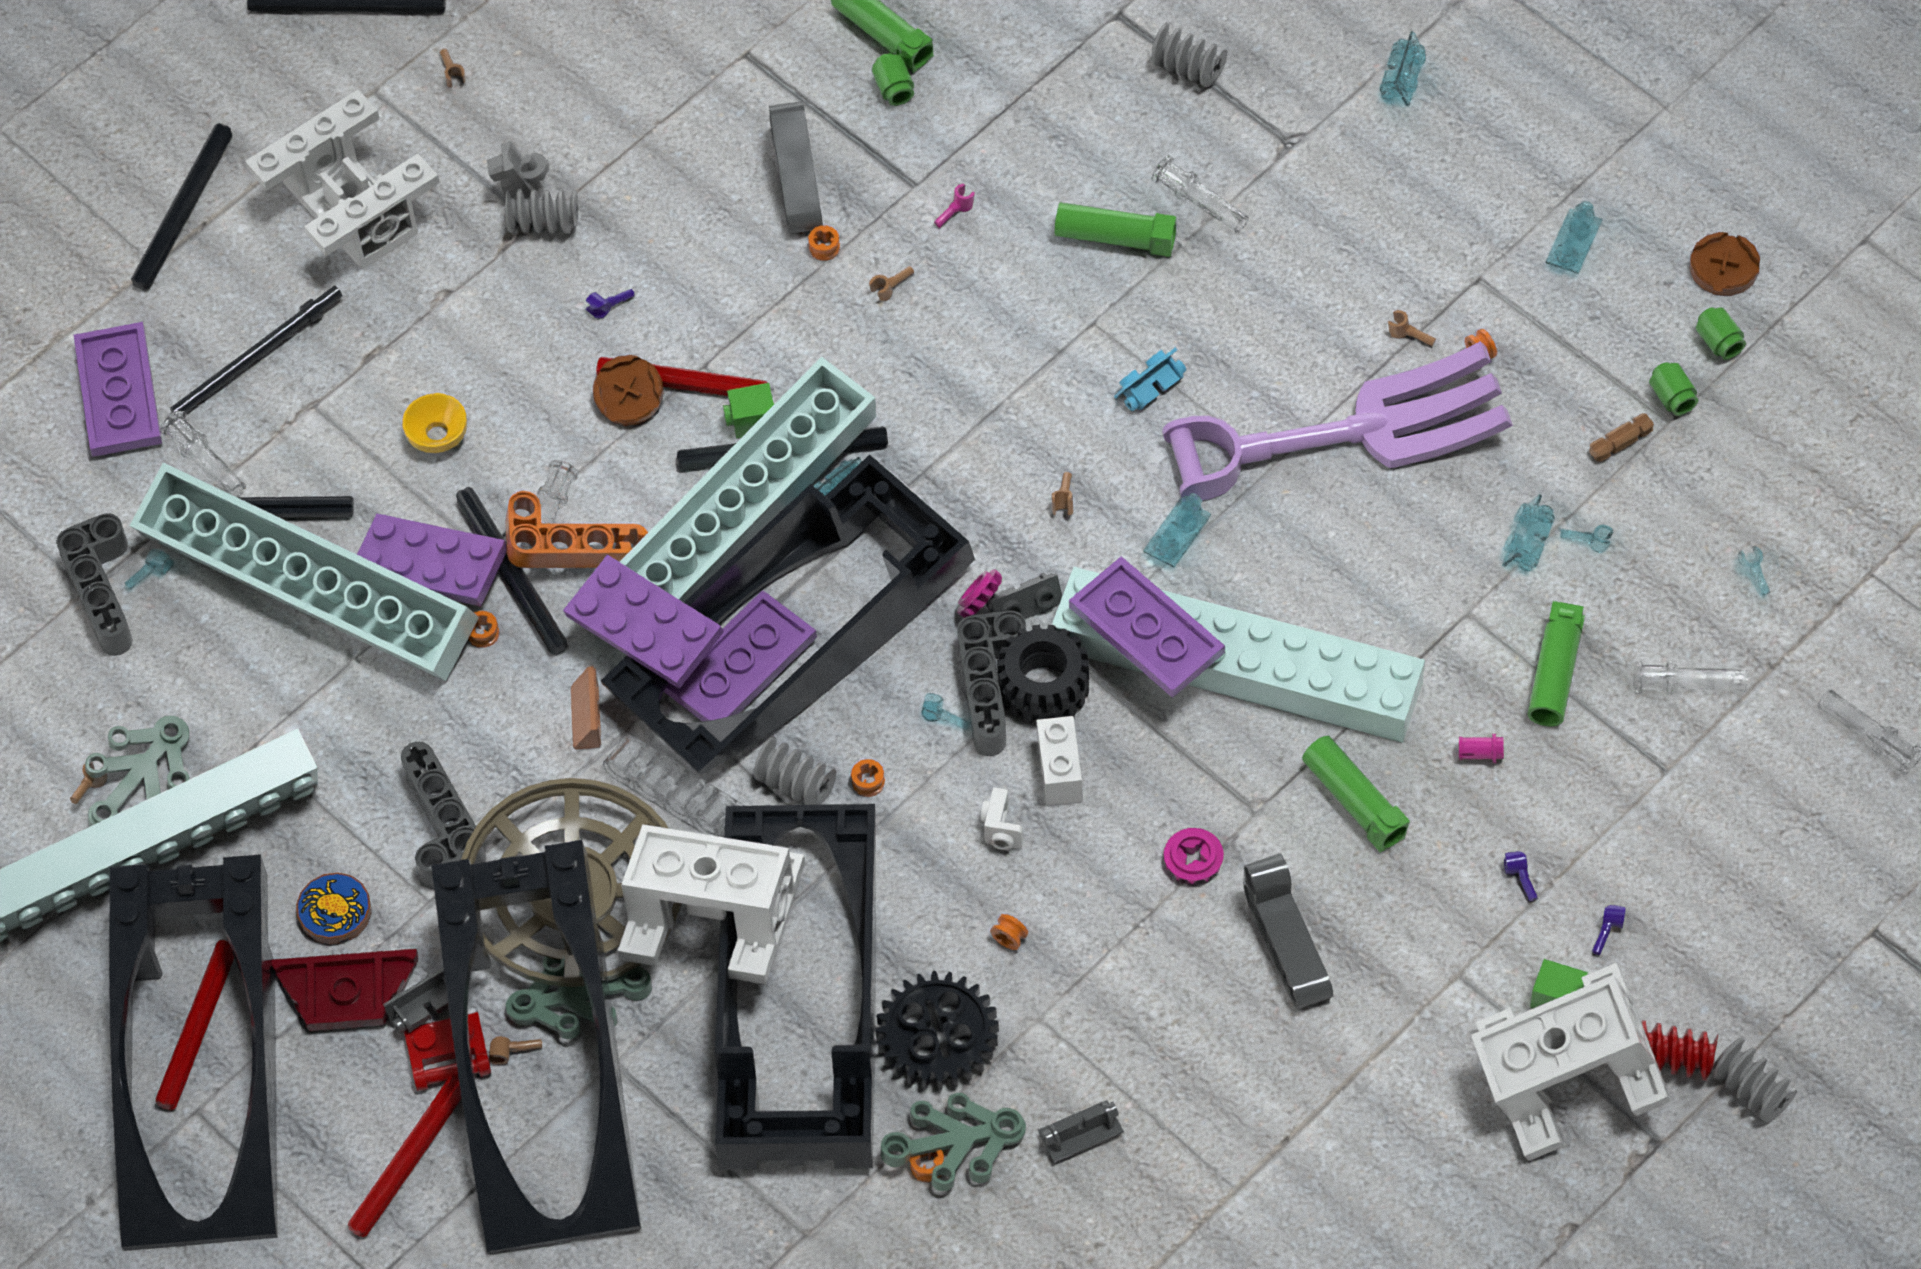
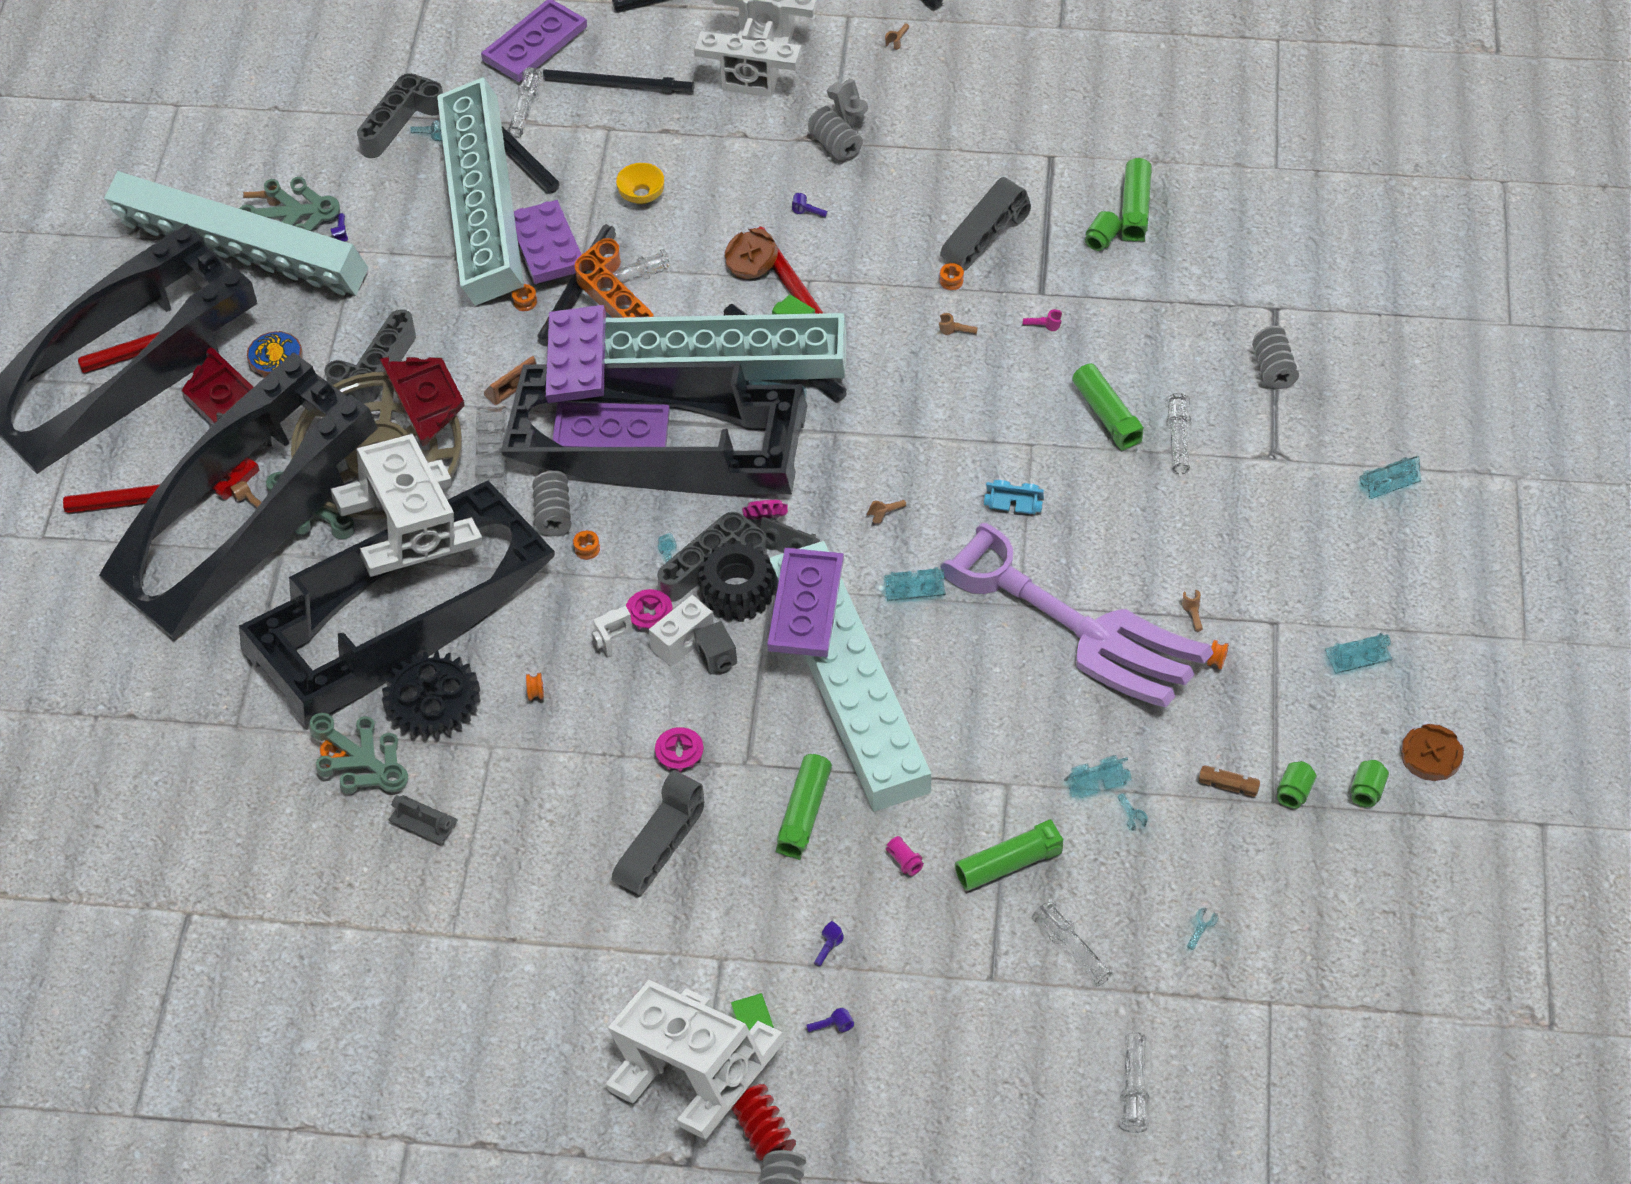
camera: 50 degrees right, 5 degrees down
(217, 742) = (340, 232): none -> dark purple hand
(559, 790) = (425, 393): none -> dark red wing
(989, 763) = (652, 600): none -> dark pink gear
(1106, 746) = (715, 647): none -> dark grey brick

